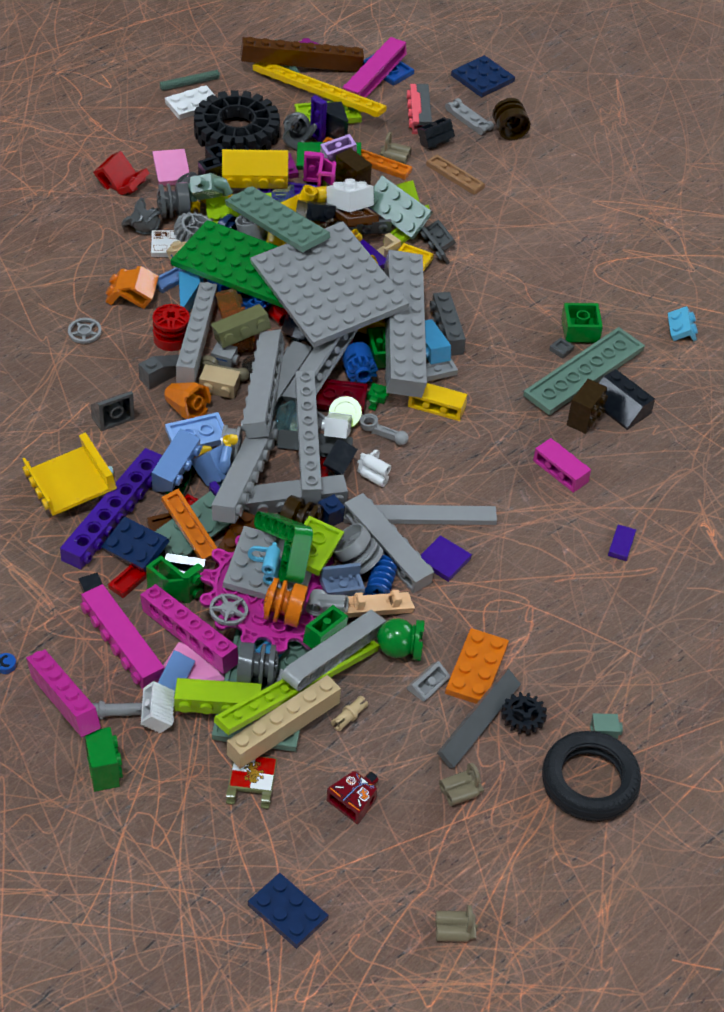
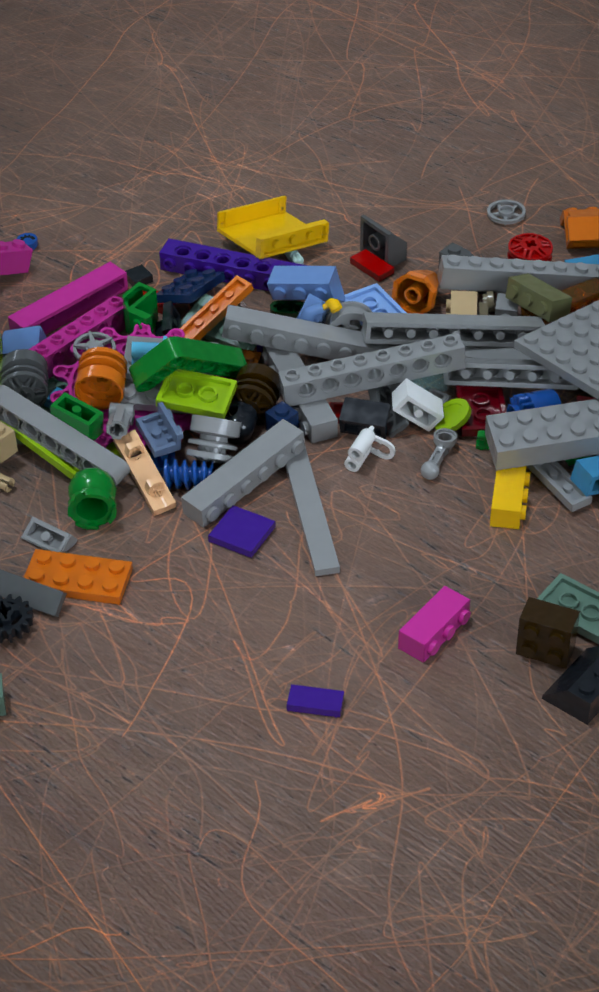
camera: 85 degrees right, 5 degrees down
(130, 426) = (372, 265): none -> red tile

